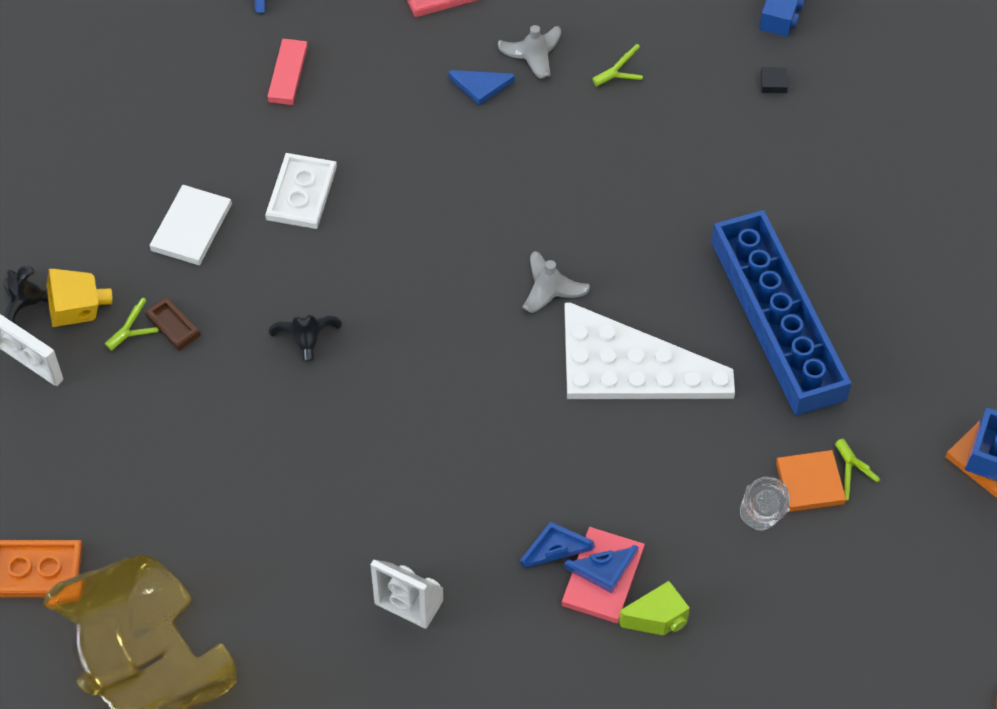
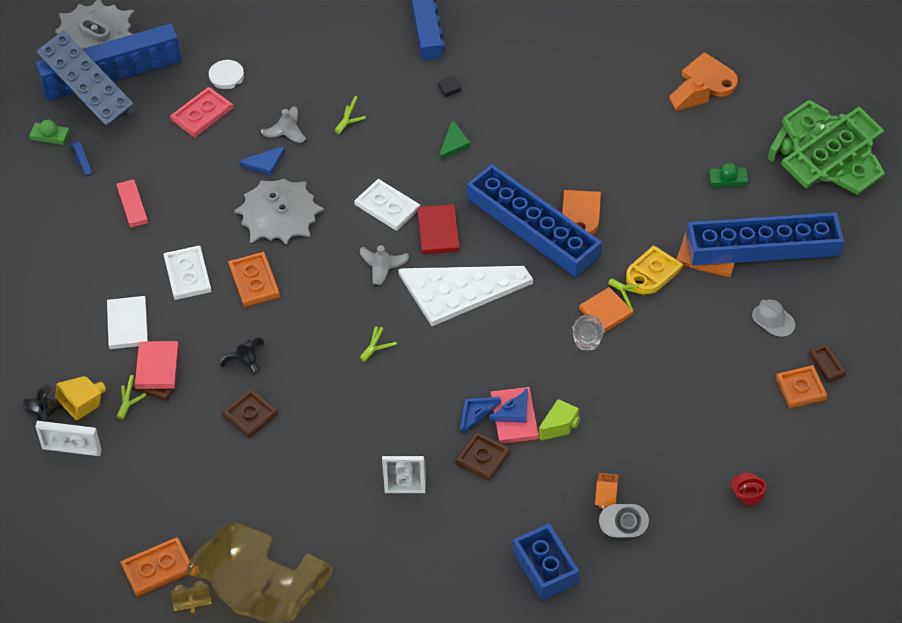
camera: 25 degrees left, 5 degrees down
(46, 633) = (190, 597): none -> clear yellow hips
(190, 297) = (156, 365): none -> coral tile
(268, 414) = (250, 413): none -> reddish brown tile
(377, 235) = (254, 279): none -> orange tile
(460, 157) = (264, 212): none -> light grey piece
(470, 394) = (371, 348): none -> lime plant
(529, 613) = (482, 456): none -> reddish brown tile
(603, 207) = (387, 204): none -> white tile
(649, 269) = (438, 229): none -> red tile
(737, 158) = (454, 141): none -> green tile
(856, 325) = (582, 208): none -> orange tile
(907, 453) = (653, 269): none -> yellow tile

